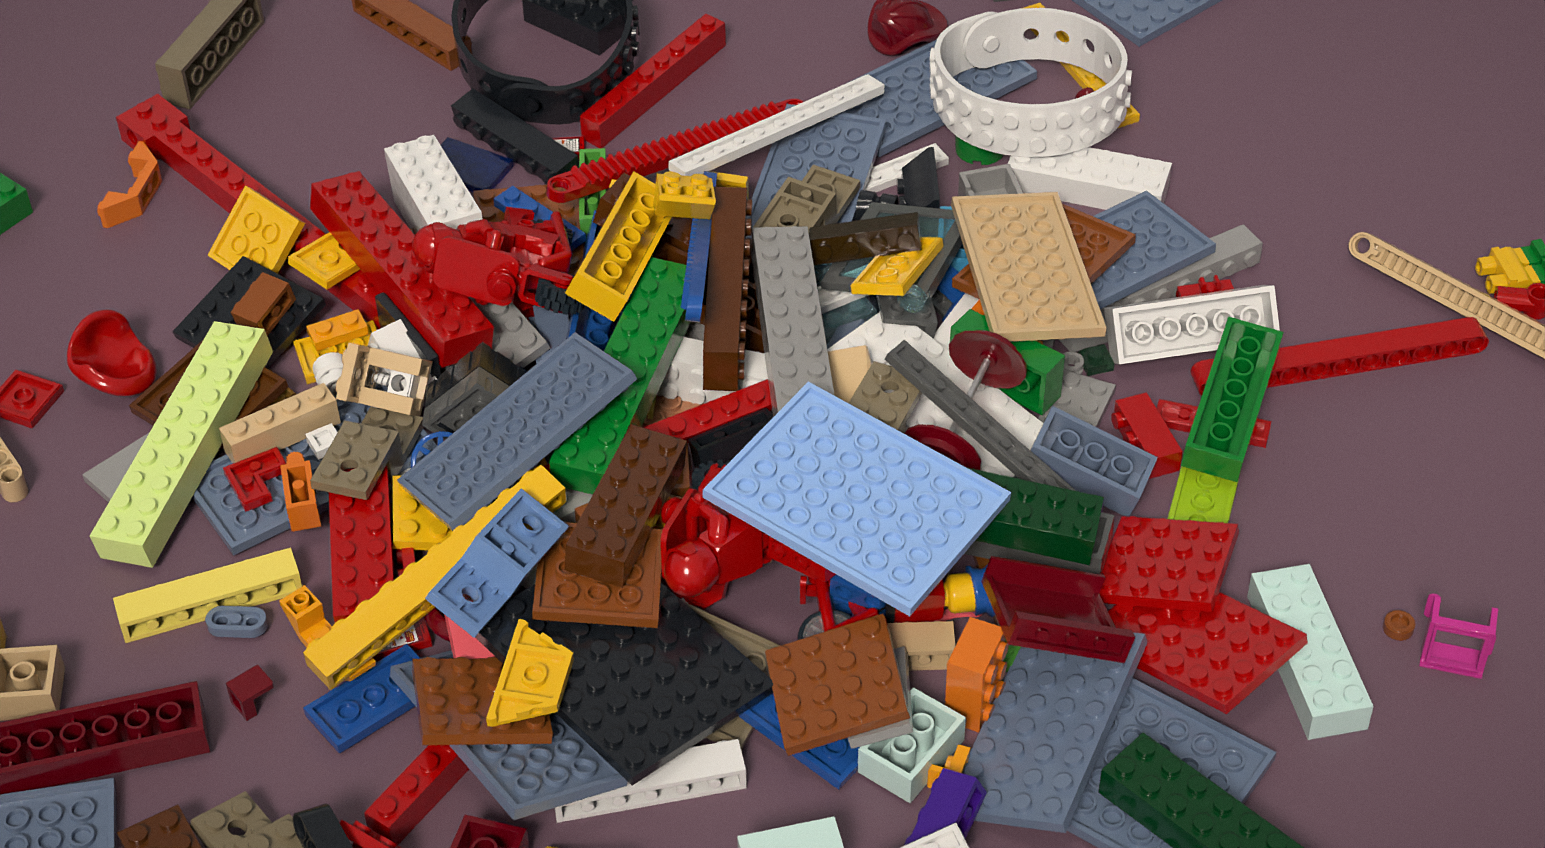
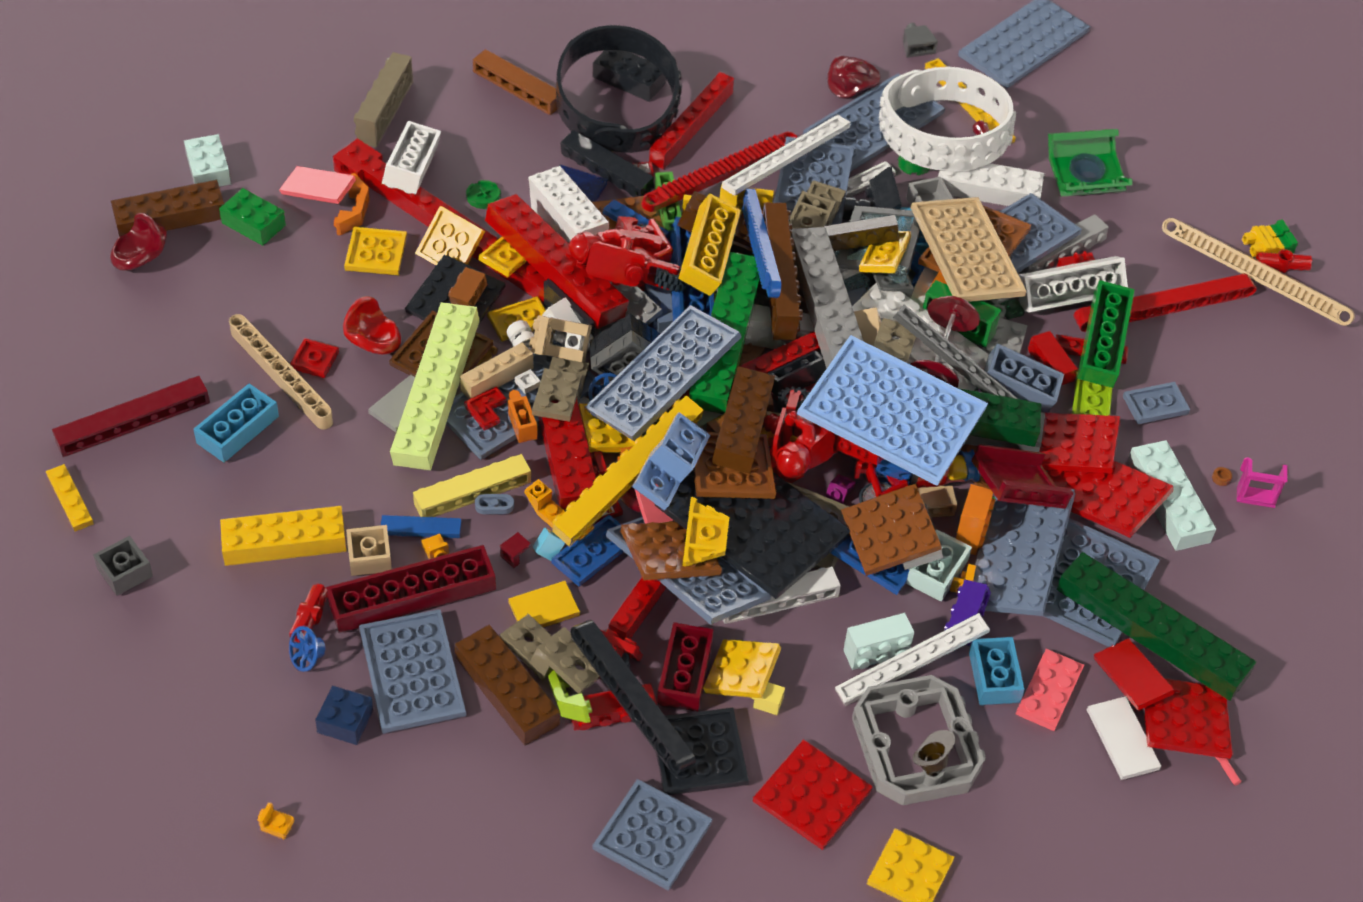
camera: 10 degrees left, 5 degrees up
(87, 157) = (317, 185): none -> tile
(120, 651) = (422, 526): none -> blue tile
(131, 680) = (435, 546): none -> light orange bracket
(150, 250) = (375, 251): none -> yellow plate
(223, 120) = (411, 157): none -> white brick
(281, 779) = (546, 605): none -> yellow tile
(302, 686) = (548, 544): none -> medium azure panel
(325, 169) = (482, 194): none -> green tile
(337, 330) = (516, 304): light orange plate -> none
(684, 196) = (747, 210): yellow slope -> none
(775, 618) = (839, 488): none -> magenta bracket
(1243, 150) = (1086, 162): none -> green panel
(1305, 507) = (1156, 403): none -> sand blue plate

